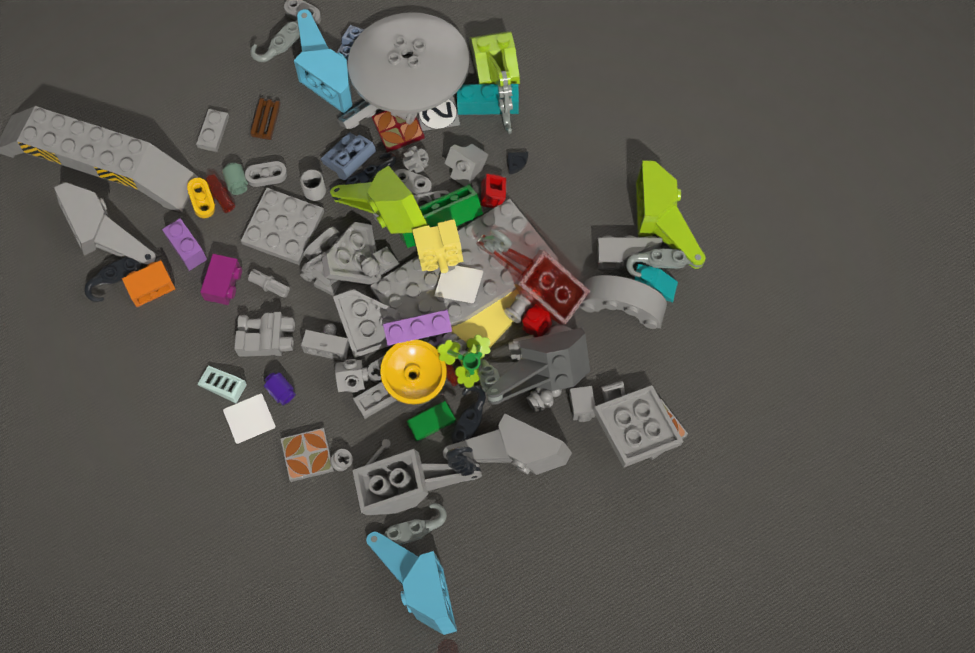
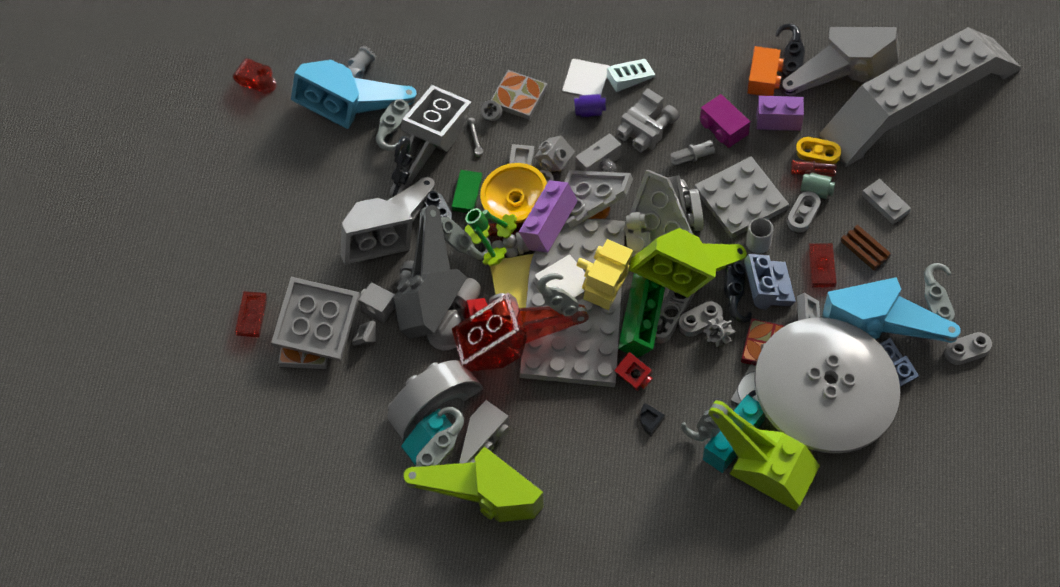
camera: 130 degrees right, 10 degrees down
(303, 136) = (822, 265): none -> clear red plate
(374, 607) = (360, 61): none -> light grey connector
(465, 163) = (680, 368): light grey brick -> none
(667, 488) = (251, 314): none -> clear red plate

